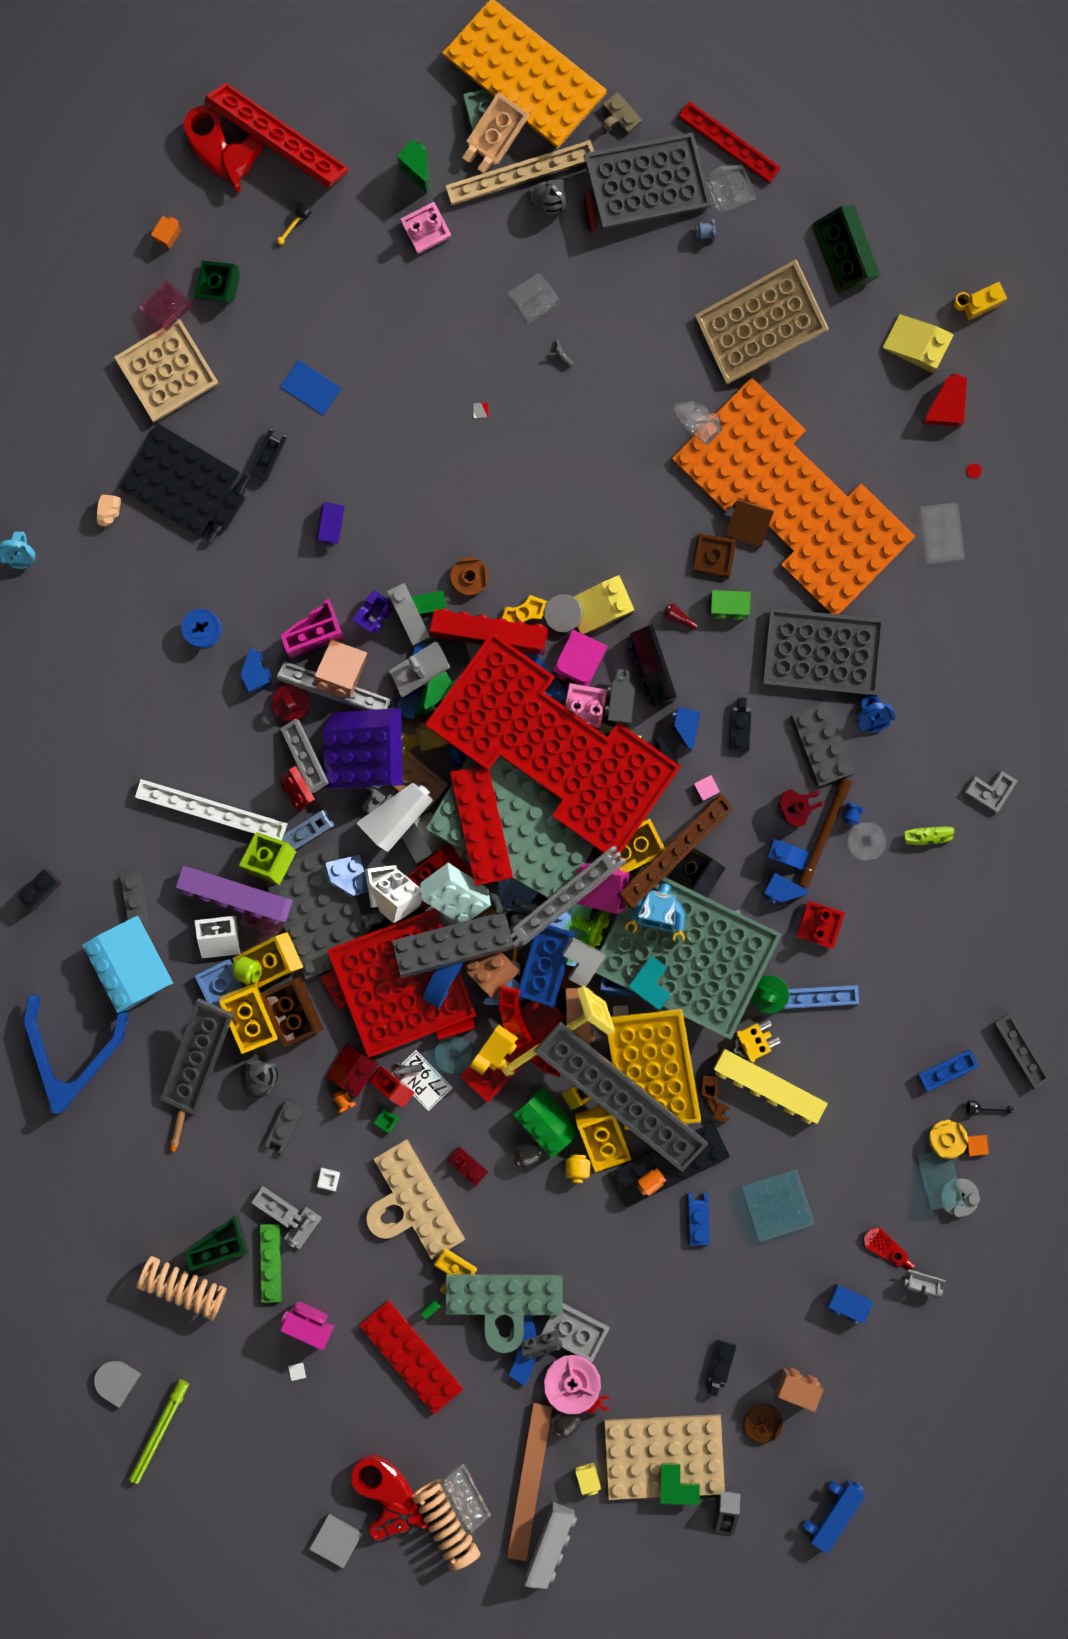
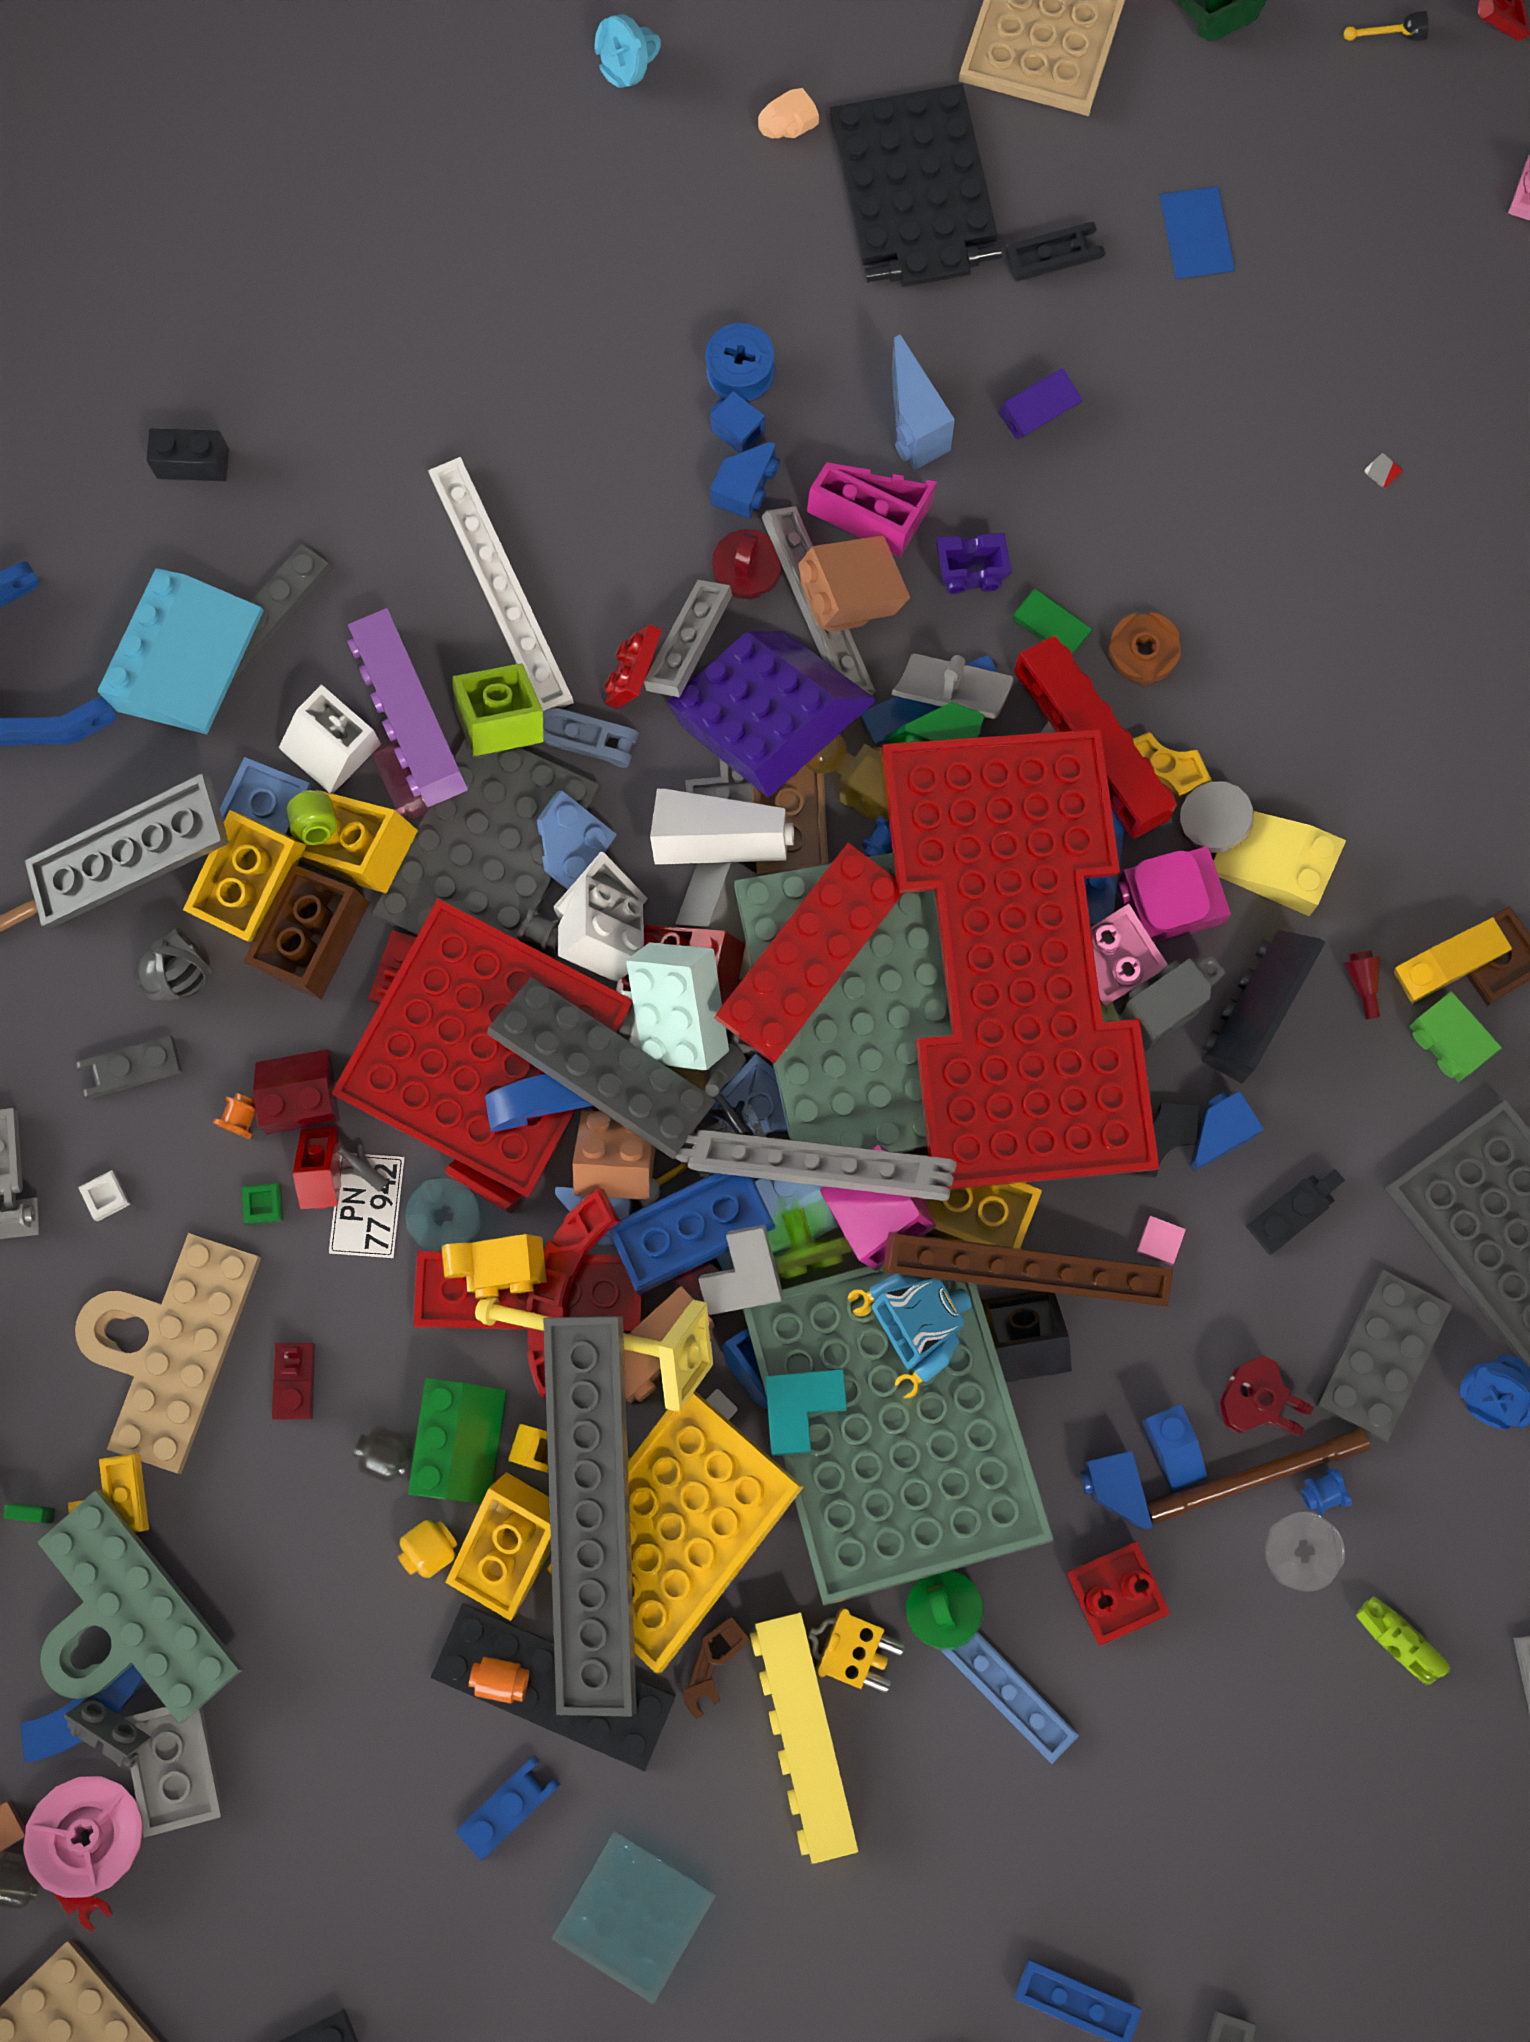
camera: 45 degrees right, 10 degrees down
(226, 653) = (737, 422): none -> blue brick
(293, 579) = (921, 416): none -> medium blue slope
(408, 614) = (1016, 606): light grey slope -> none
(700, 577) = (1451, 960): none -> yellow slope

